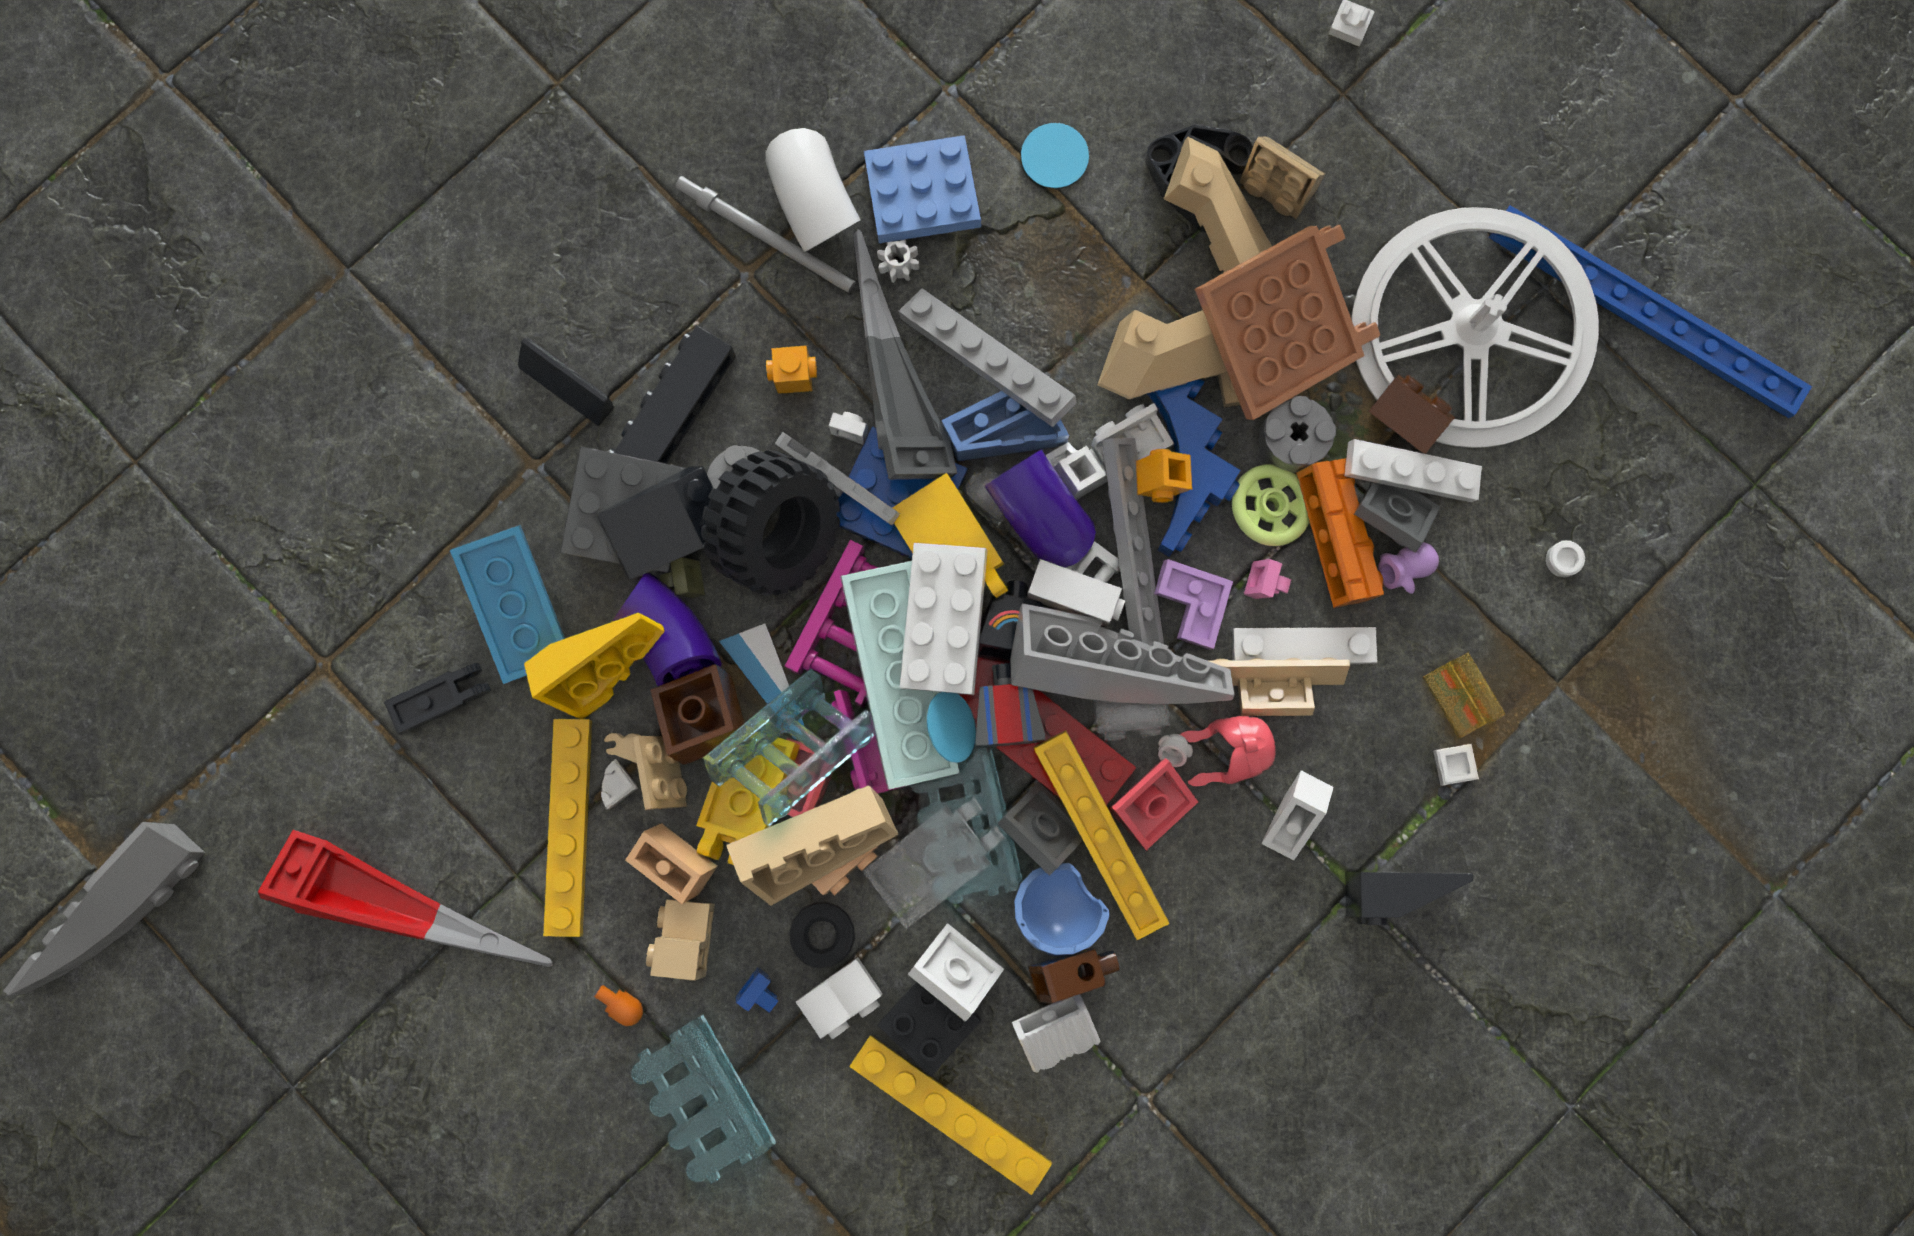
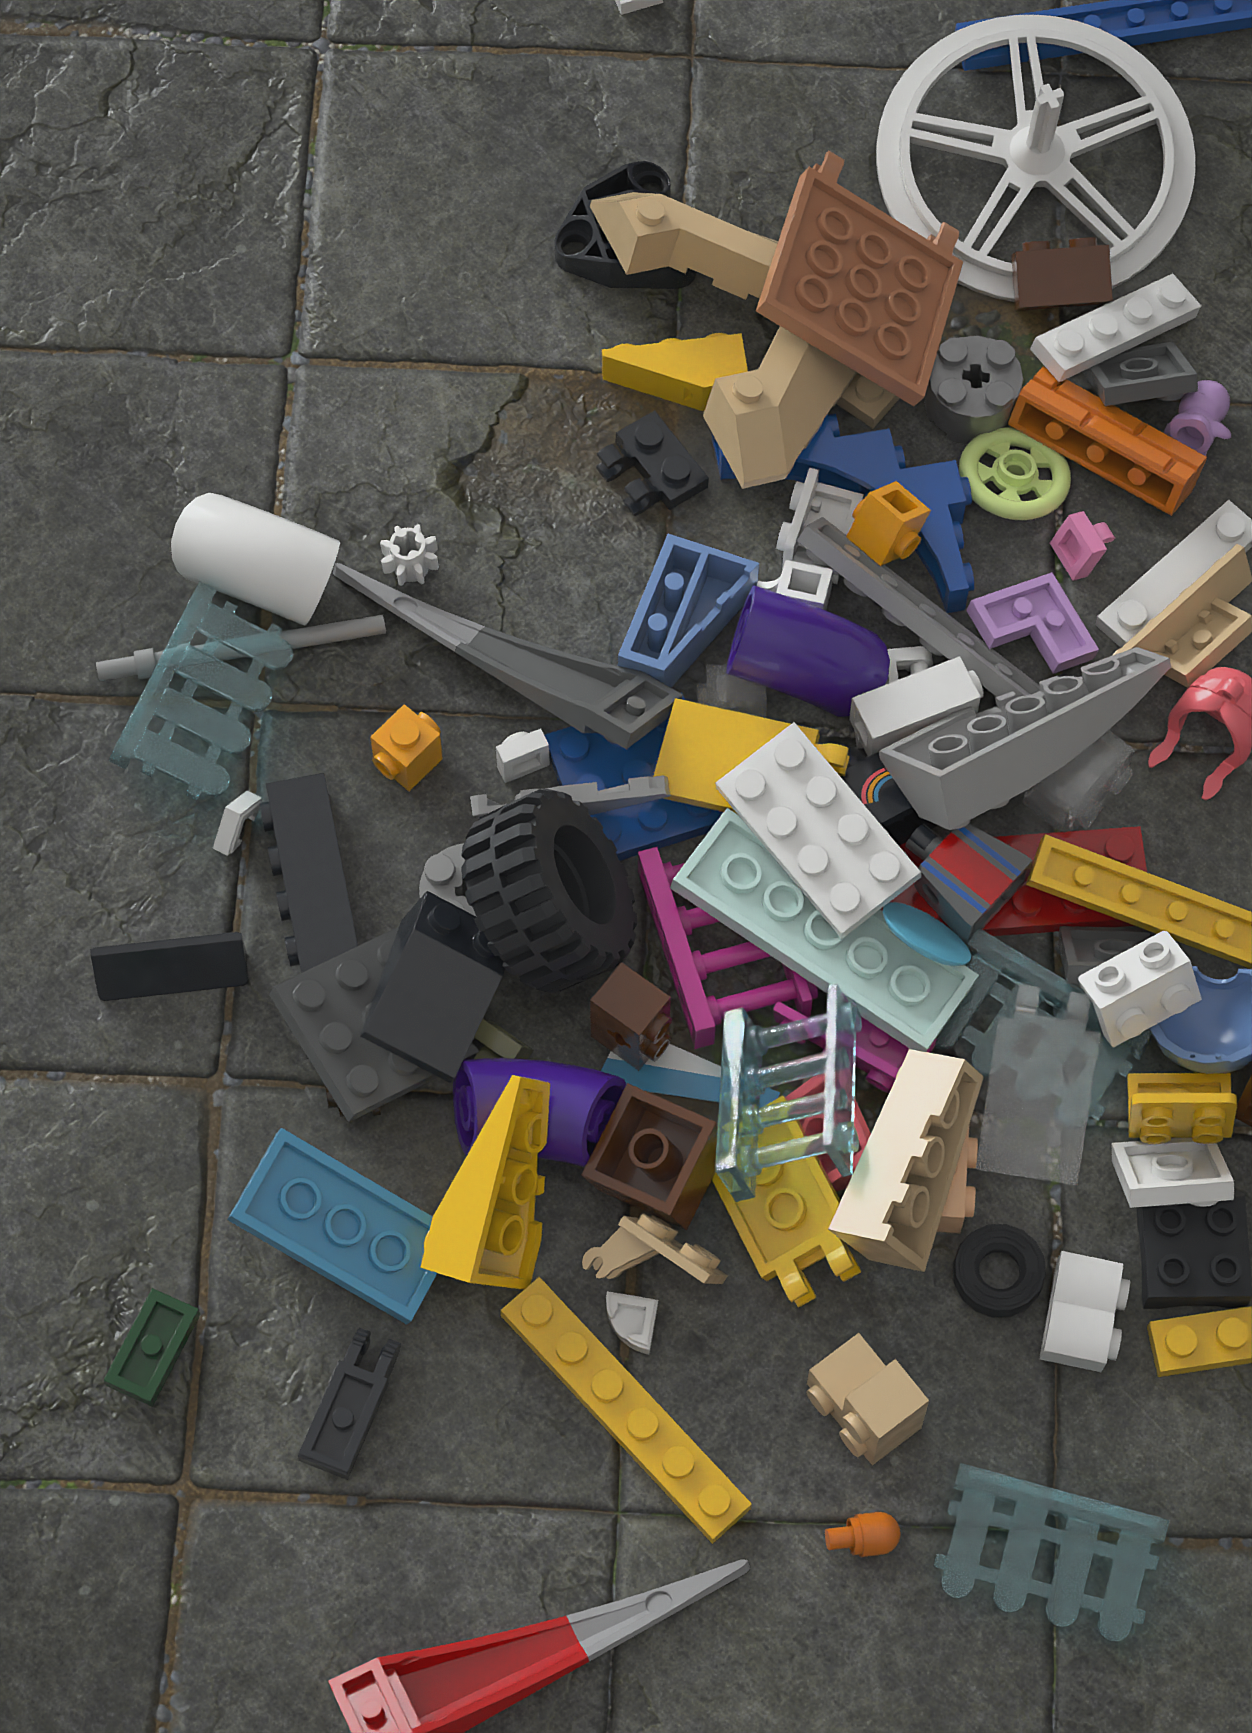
camera: 45 degrees left, 15 degrees down
(369, 578) = (152, 1347): none -> dark green plate
(669, 328) = (234, 815): none -> white tile
(671, 863) = (776, 1332): light nougat brick -> none
(696, 244) = (192, 716): none -> clear light blue fence
(756, 991) = (992, 1383): blue tile -> none
(757, 628) = (631, 1017): none -> reddish brown brick
(922, 189) = (366, 468): medium blue plate -> none
(988, 357) = (600, 561): light grey plate -> none
(998, 939) = (1180, 1107): none -> yellow bracket
(1029, 863) = (1141, 987): none -> white bracket
(1054, 155) = (465, 334): medium azure piece -> none
(1088, 322) = (660, 458): none -> black plate
(1148, 282) = (676, 367): none -> yellow slope
(1154, 804) = (1192, 839): coral slope -> none
(1175, 749) = (1166, 784): white plate -> none
(1280, 177) = (718, 164): tan slope -> none

